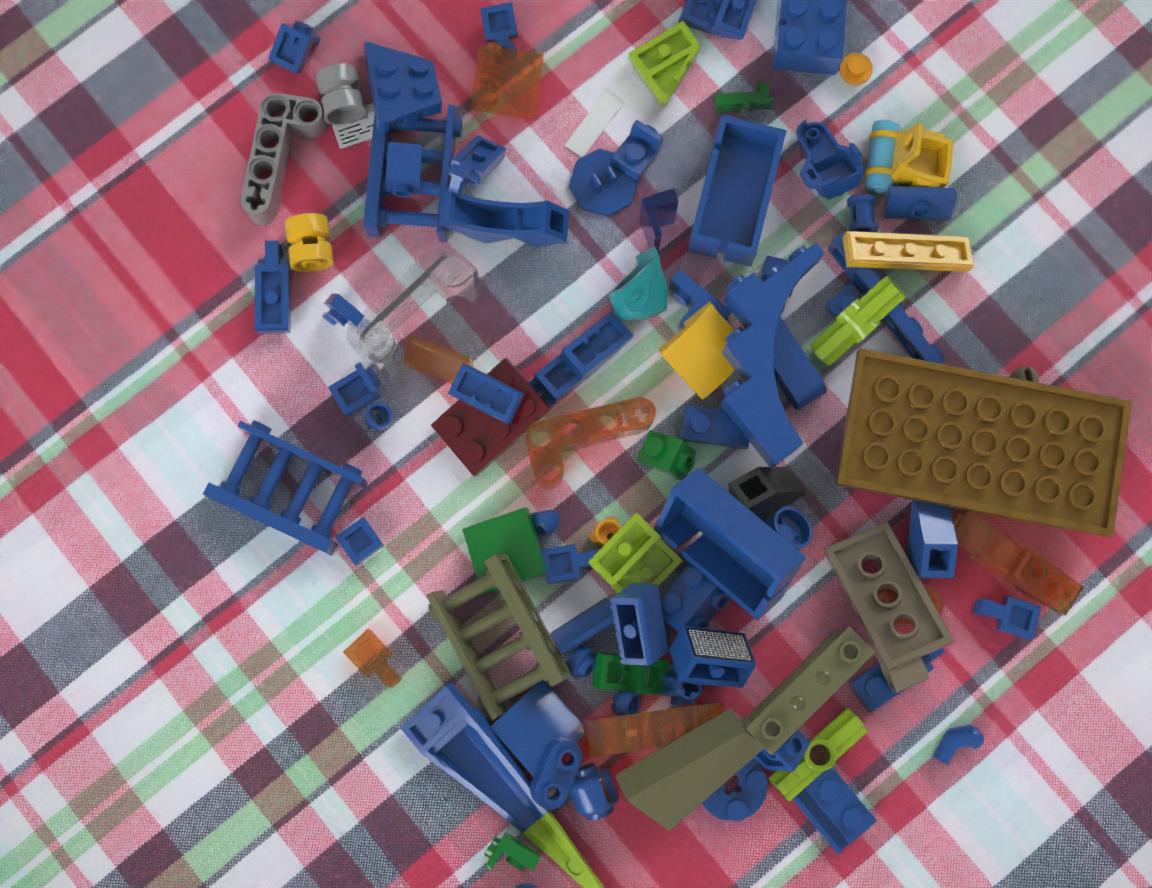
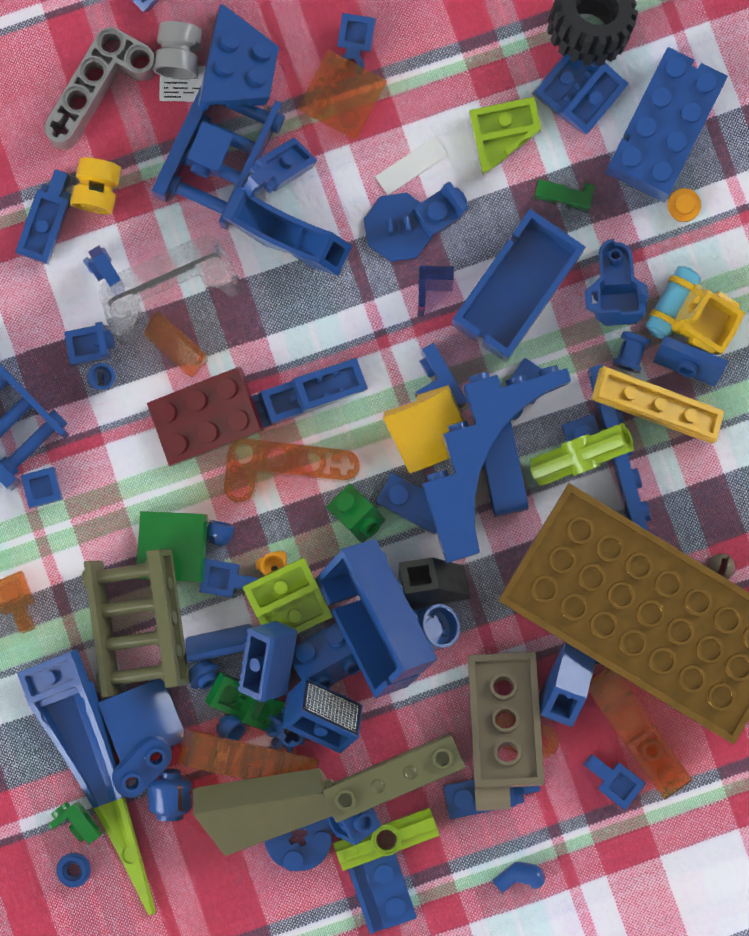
camera: 20 degrees right, 5 degrees up
(486, 393) = (206, 396): blue plate -> none
(643, 290) = (390, 349): teal helmet -> none

